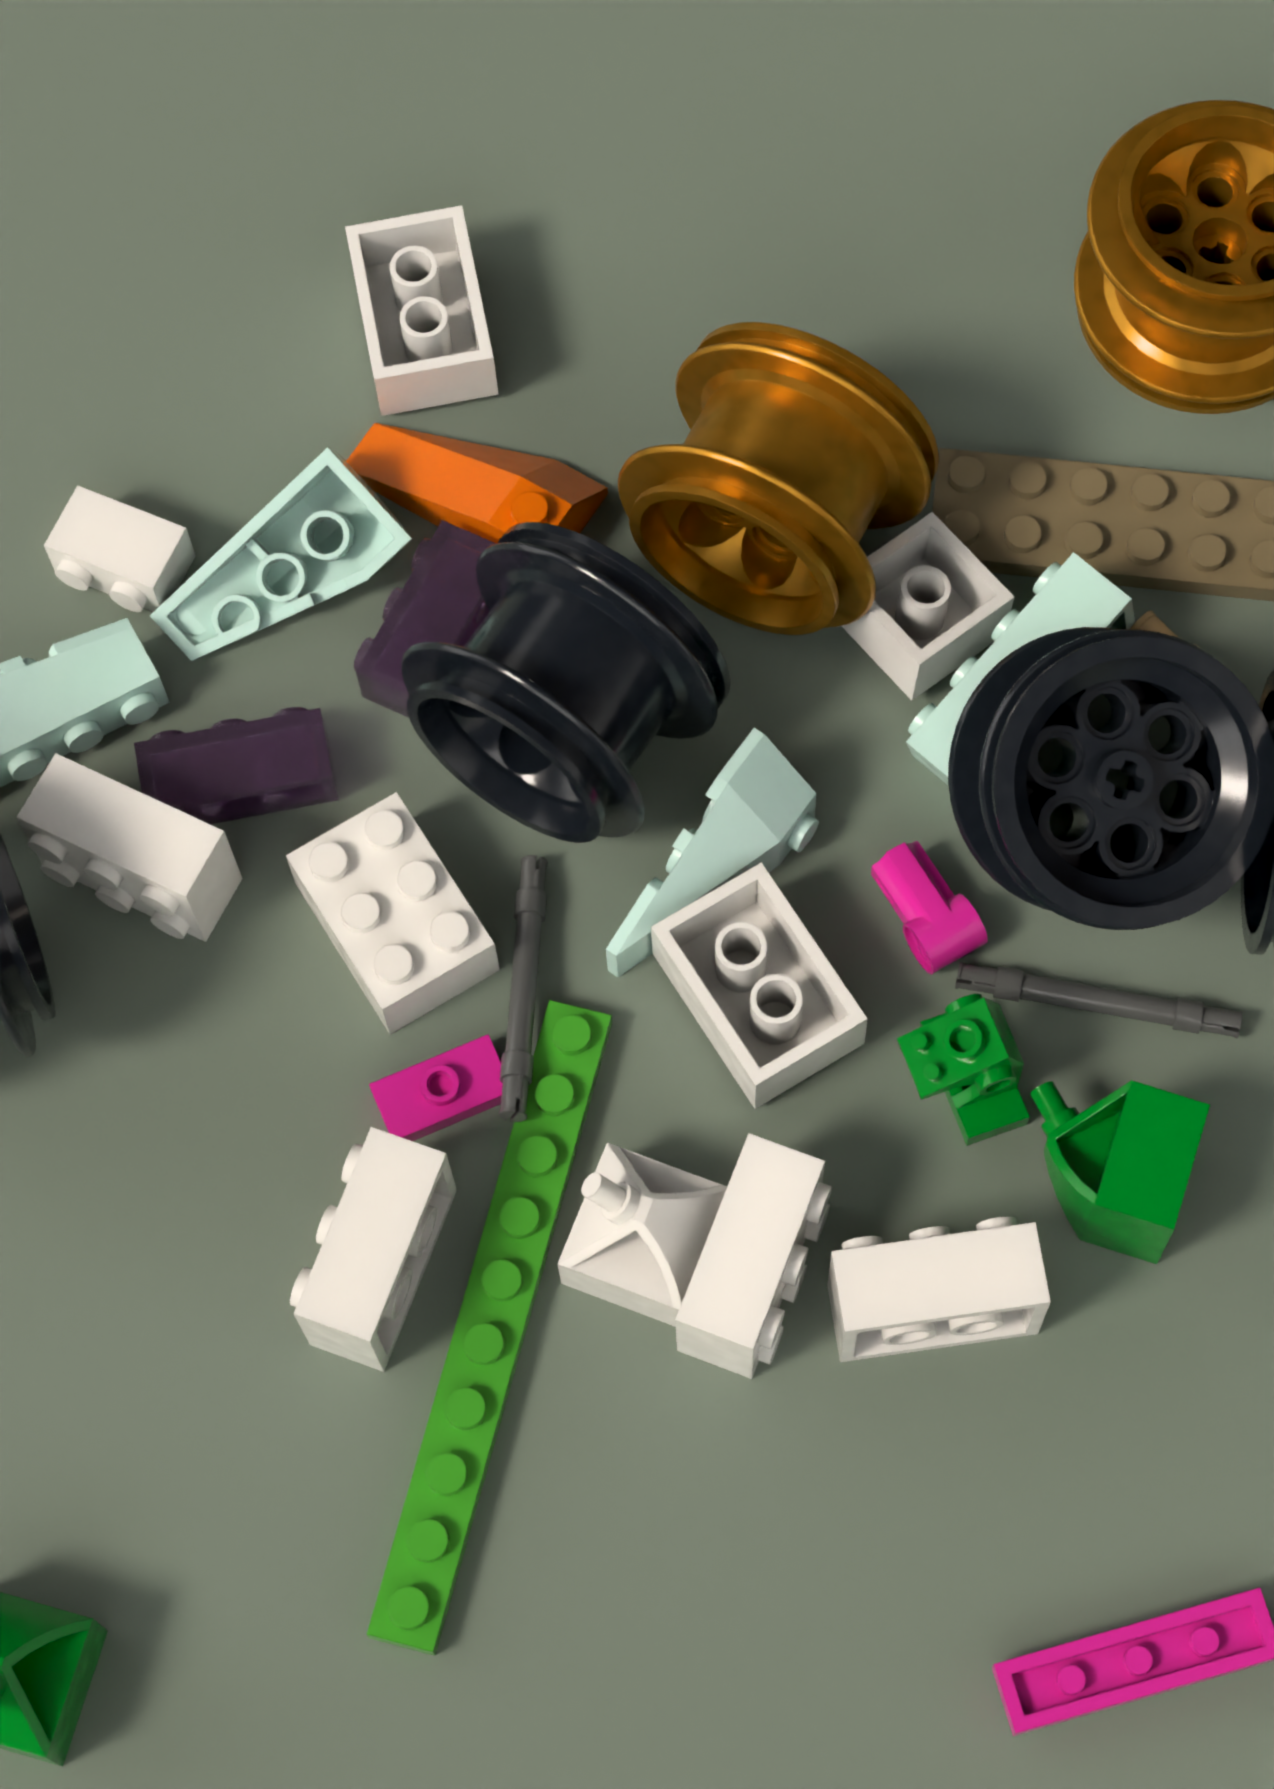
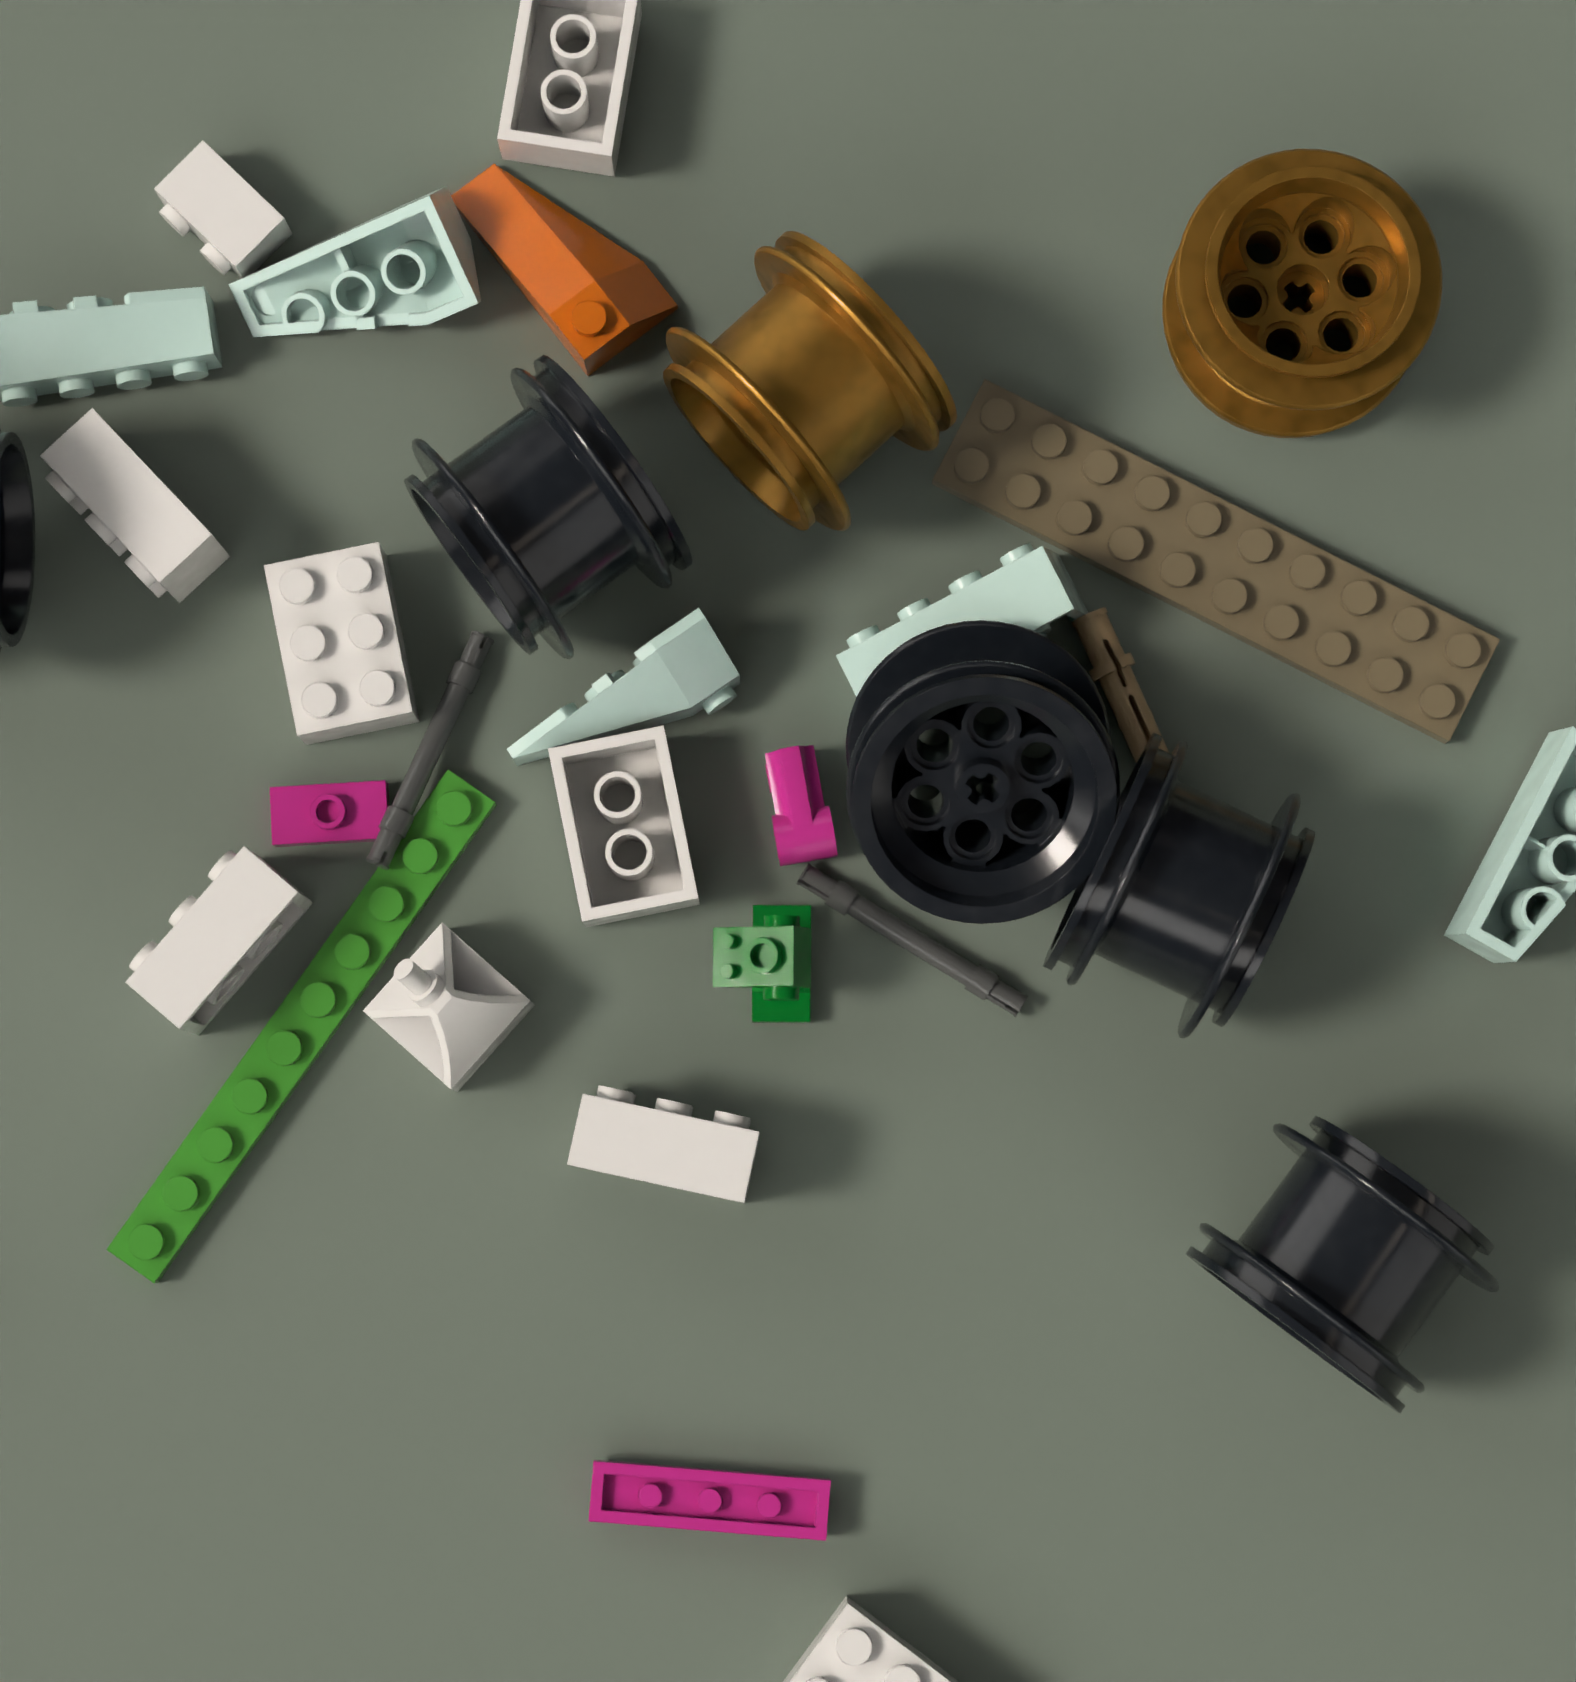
camera: 15 degrees right, 15 degrees up
(241, 766) = (254, 459): clear purple brick -> none
(434, 606) = (471, 379): clear purple brick -> none
(753, 1257) = (526, 1064): white brick -> none
(929, 606) = (905, 532): white brick -> none
(1122, 1163) = (861, 1095): green piece -> none

